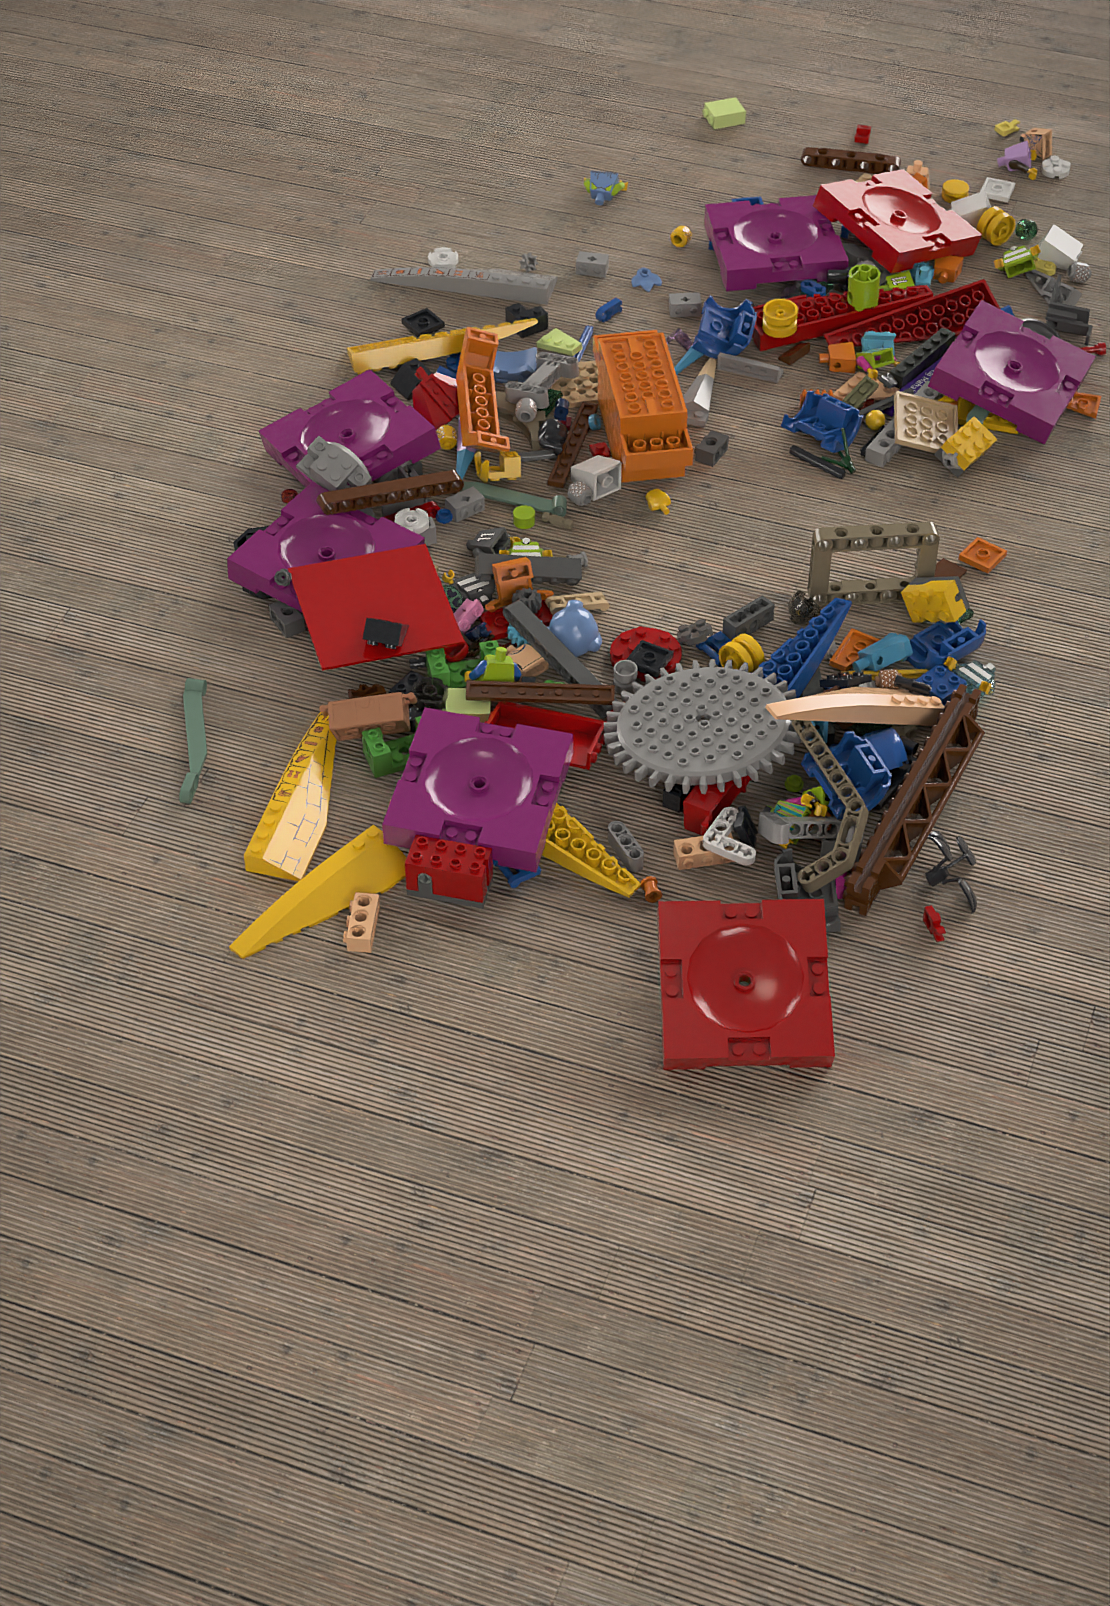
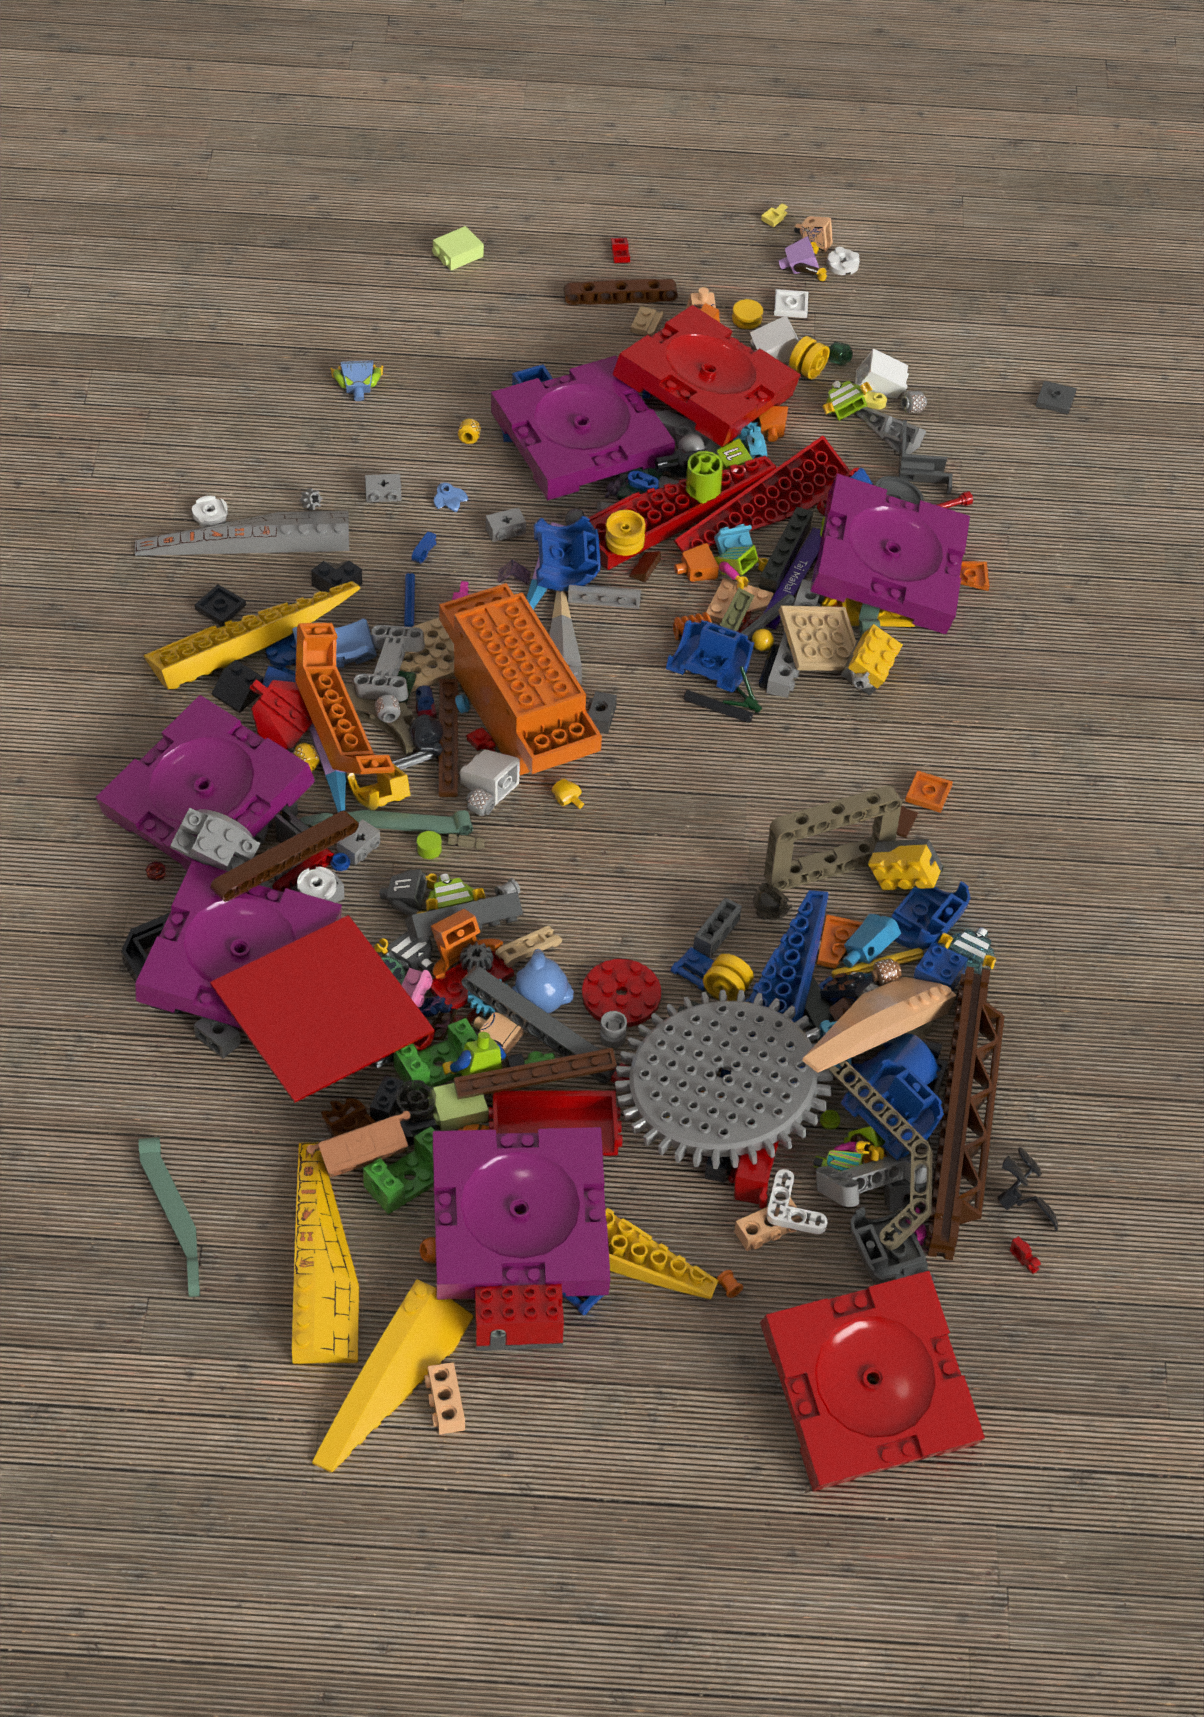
camera: 20 degrees left, 5 degrees up
(278, 577) = (209, 999): dark grey plate -> none
(385, 632) = (349, 1041): black slope -> none
(559, 342) = (385, 603): yellowish green wing -> none
(625, 846) = (687, 1246): light grey beam -> none
(650, 658) = (633, 1001): black plate -> none
(694, 633) = (656, 956): dark grey plate -> none
(745, 827) = (803, 1190): black plate -> none
(888, 380) = (762, 588): dark grey piece -> none
(912, 685) = (915, 976): black axle -> none

